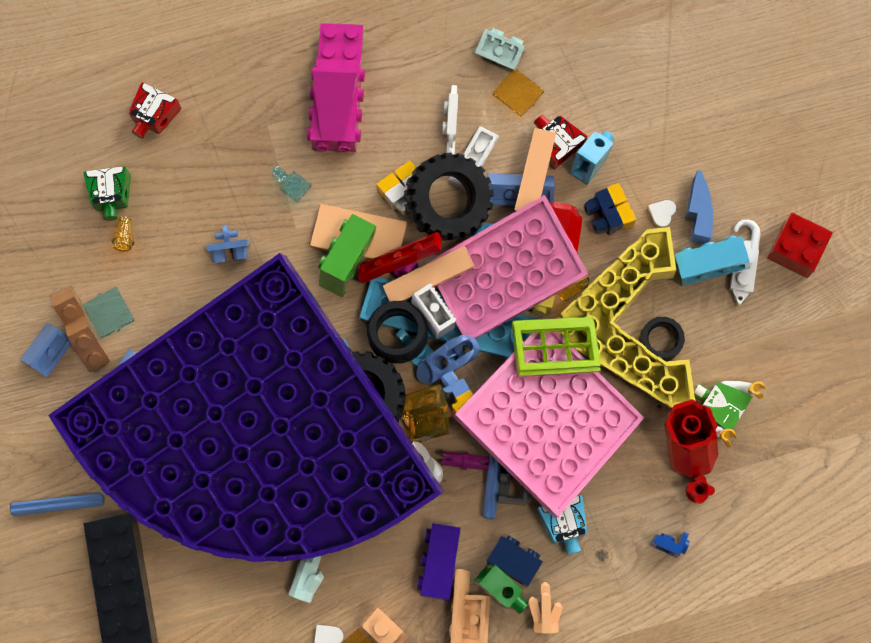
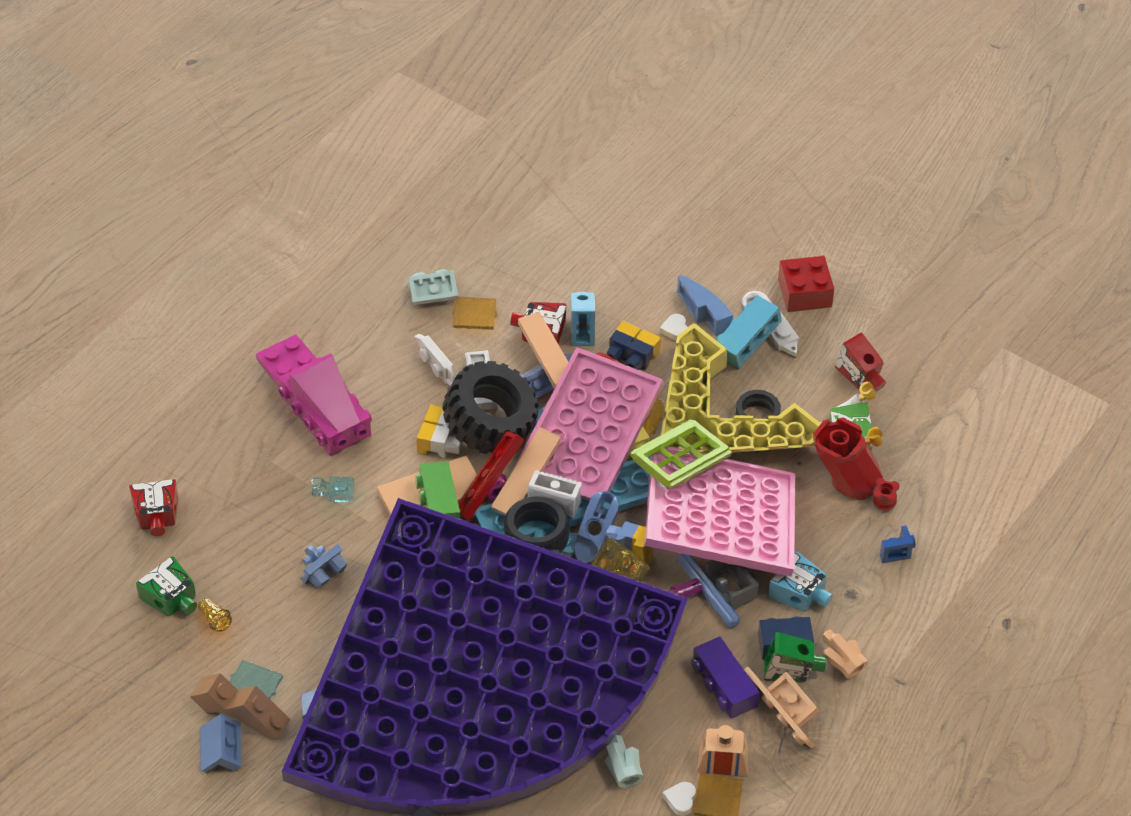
camera: 40 degrees left, 25 degrees down
(781, 347) = (860, 362): none -> red torso

